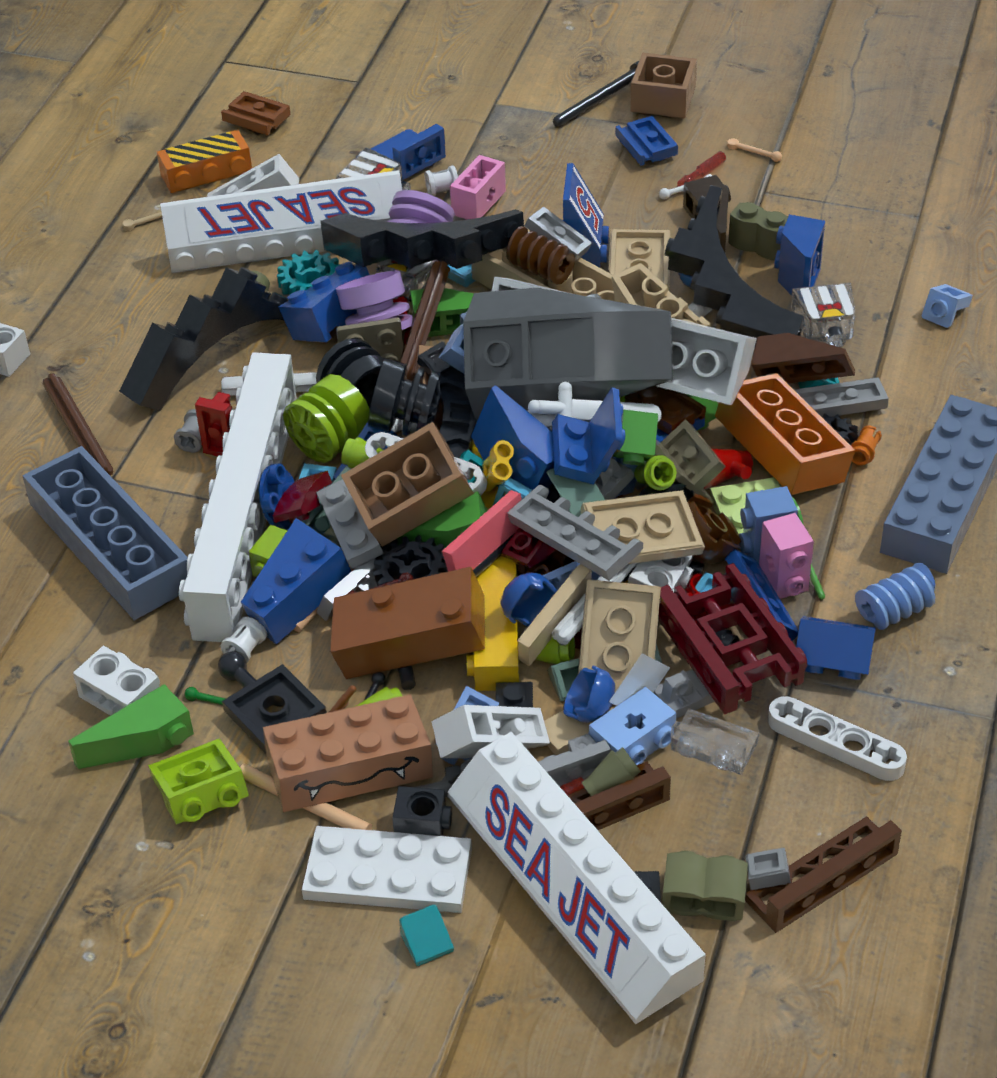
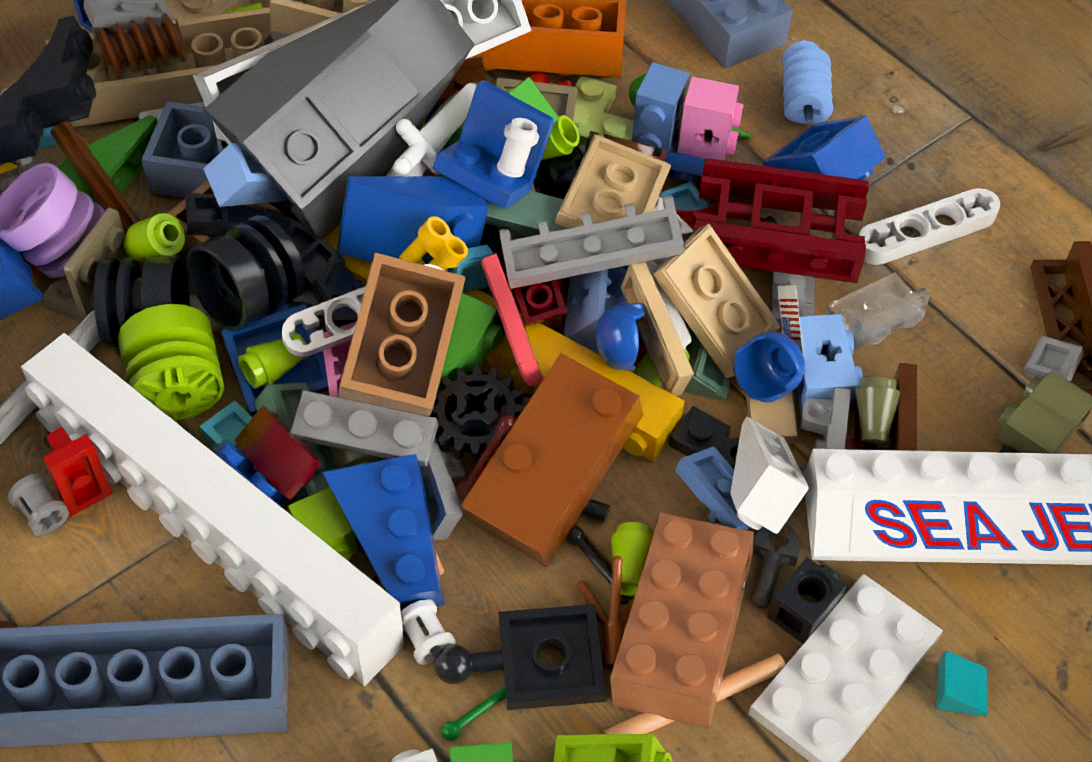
camera: 60 degrees left, 10 degrees up
(392, 348) = (154, 237): none -> lime brick
(594, 435) = (520, 137): none -> white pin

